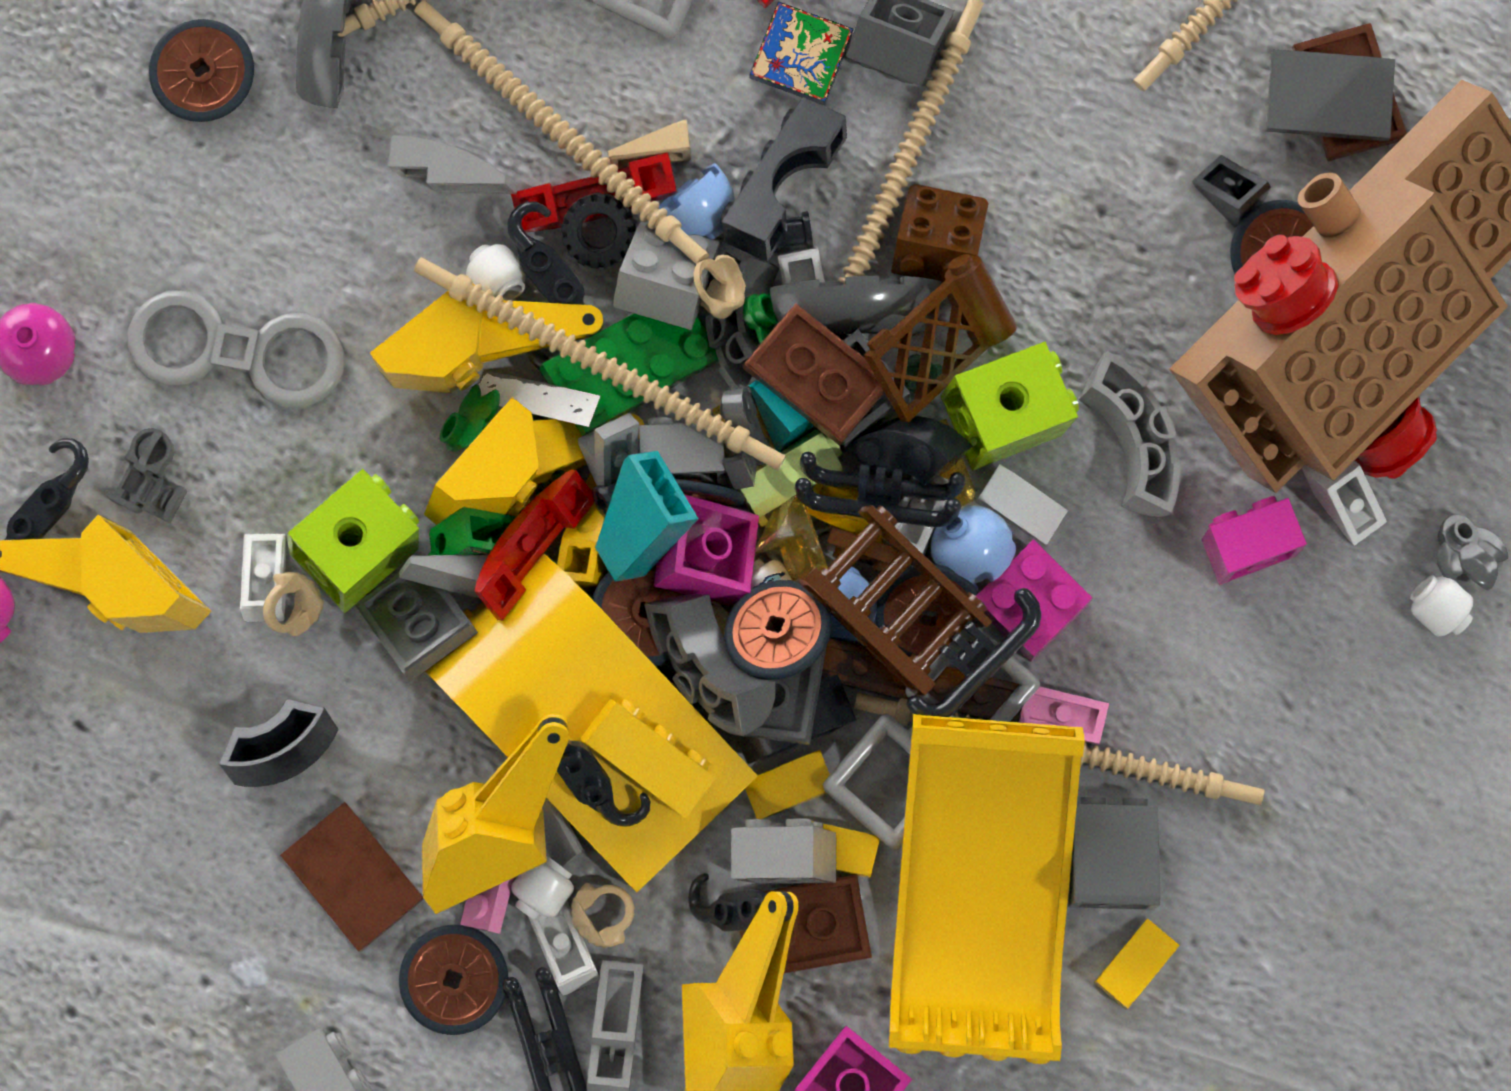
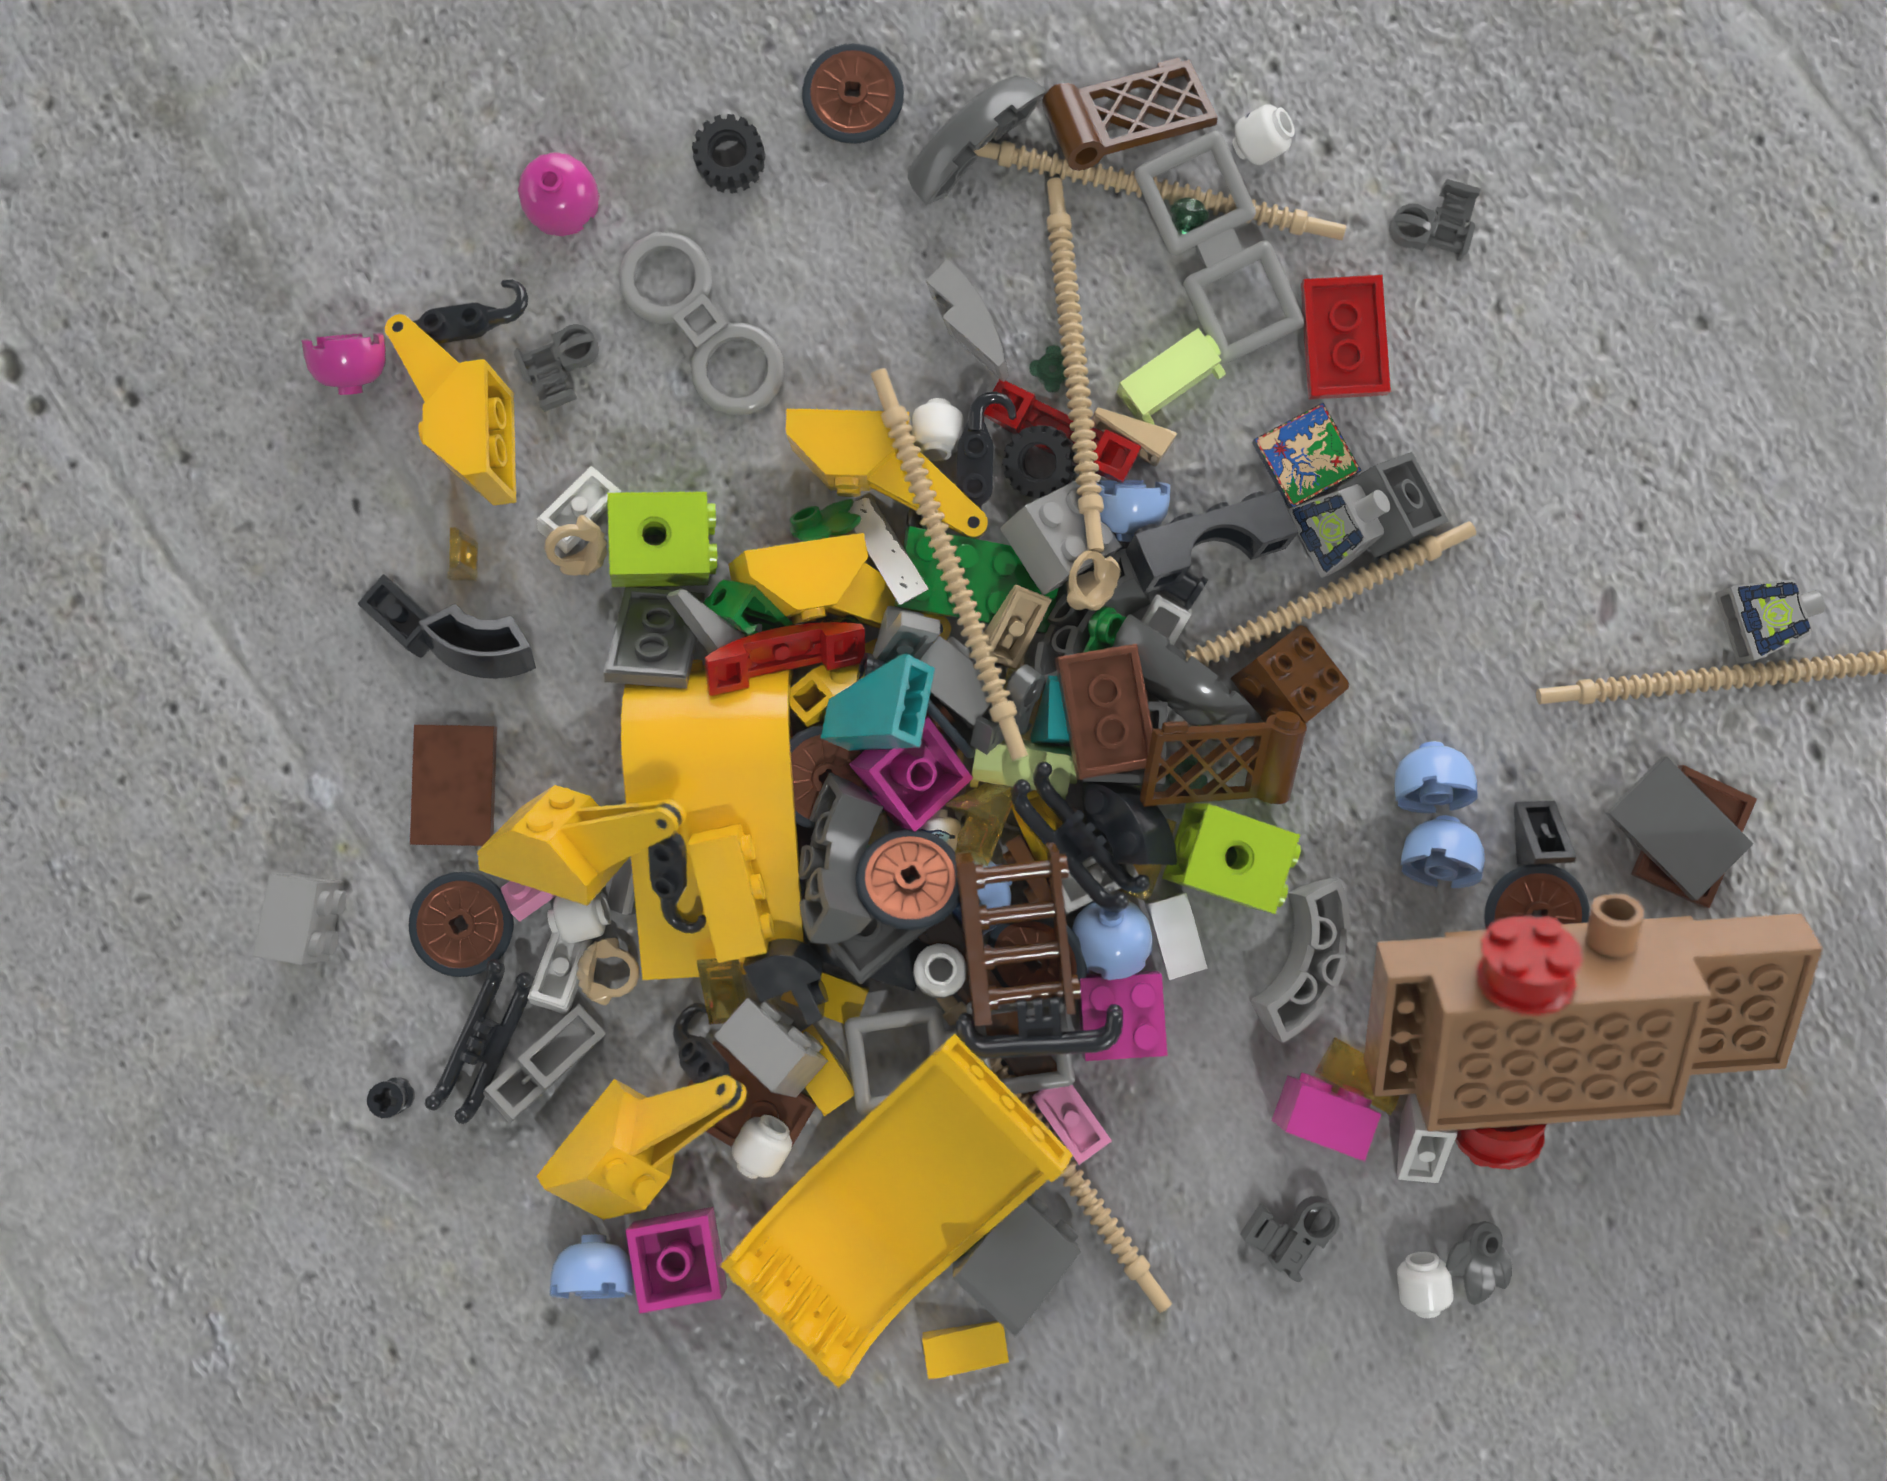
camera: 40 degrees right, 5 degrees up
(130, 178) = (723, 131): none -> black tyre
(190, 781) = (396, 614): none -> black slope
(201, 692) = (461, 556): none -> clear yellow slope
(536, 160) = (1040, 368): none -> clear green plate
(642, 79) = (1170, 375): none -> yellowish green brick
(689, 368) = (1016, 625): none -> tan slope
(704, 843) = (722, 988): none -> clear yellow slope
(742, 779) = (793, 968): none -> black brick
(842, 940) = (761, 1147): none -> white head
(862, 684) = (939, 970): none -> white head
(873, 85) = (1340, 526): none -> torso
(1113, 214) = (1435, 777): none -> light blue cylinder
(1168, 265) = (1444, 852): none -> light blue cylinder
(1240, 492) = (1347, 1069): none -> clear yellow slope
(1314, 667) = (1286, 1243): none -> dark grey piece

